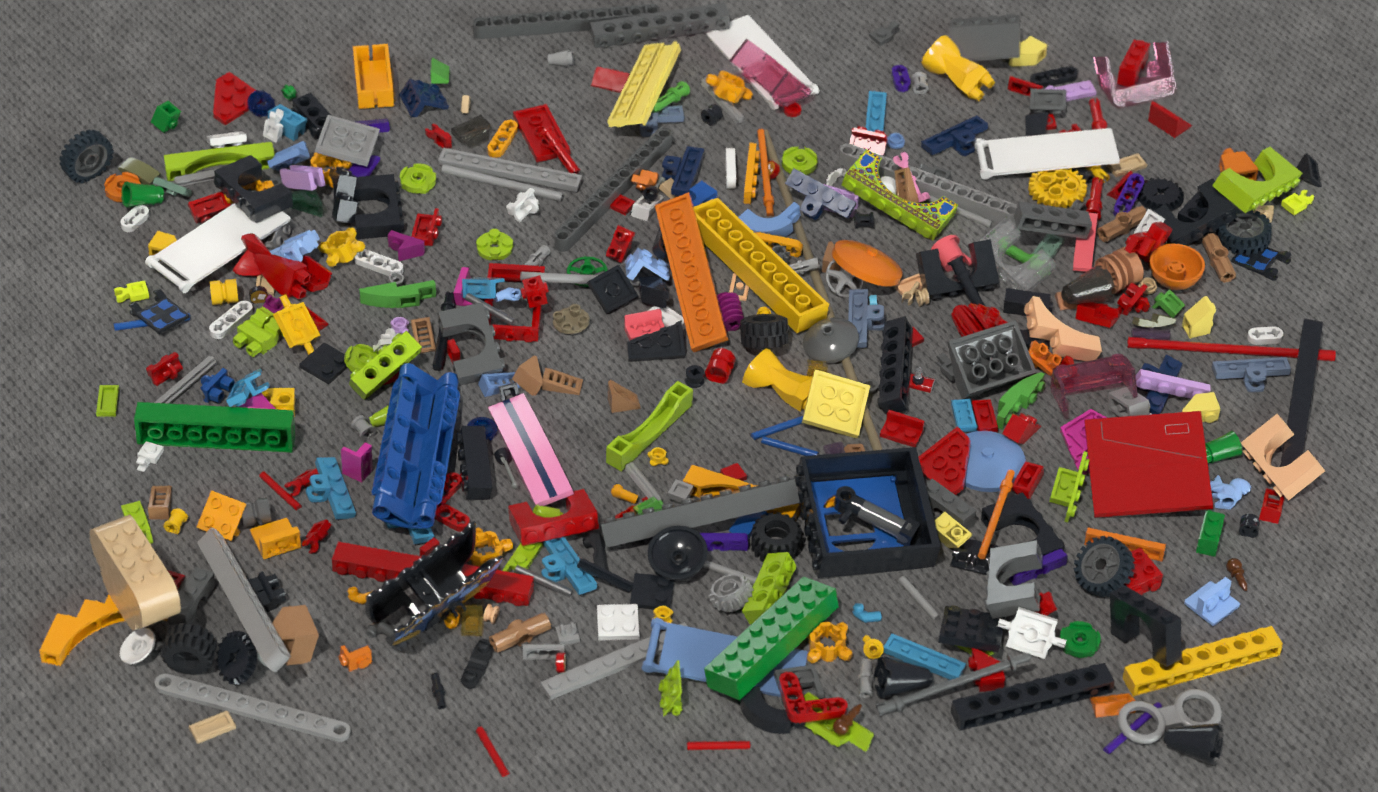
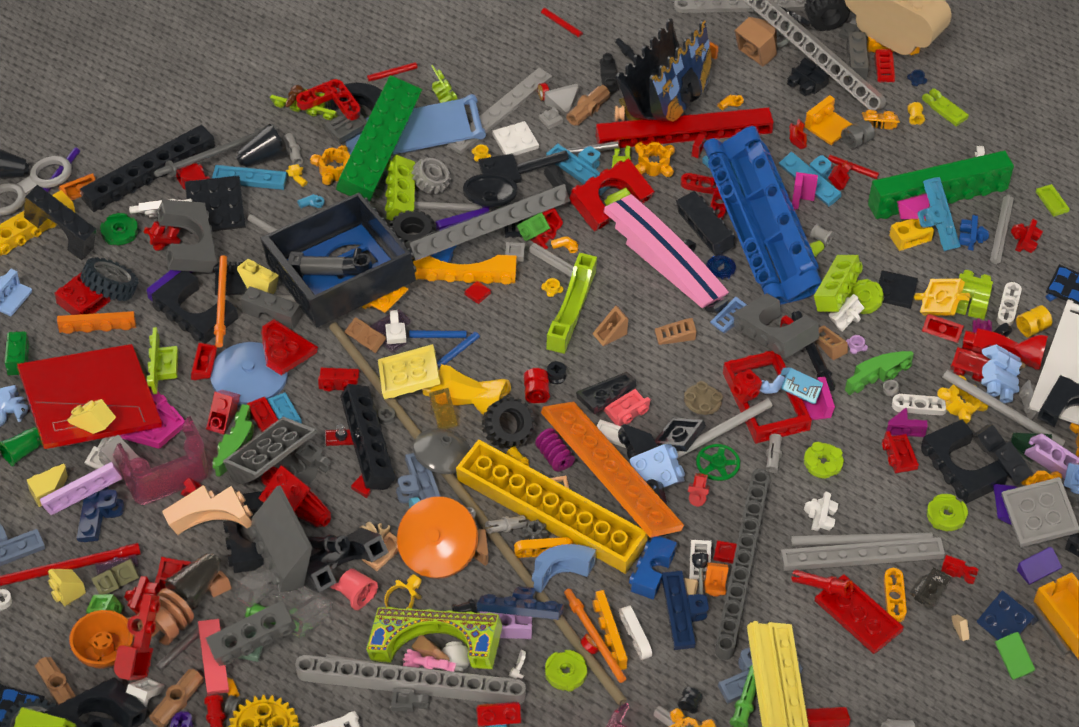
camera: 160 degrees right, 5 degrees up
(160, 508) = (941, 117): medium nougat slope -> none
(321, 227) = (999, 406): none -> light grey piece
(493, 311) = (778, 365): flat silver bar -> none
(529, 376) = (709, 322): medium nougat slope -> none
(833, 444) = (395, 331): none -> white plate
(906, 247) = (413, 583): none -> yellow piece
(1010, 270) = (281, 541): none -> dark grey slope
(1043, 358) = (223, 481): orange hips -> none
(1152, 419) = (92, 416): none -> light yellow slope

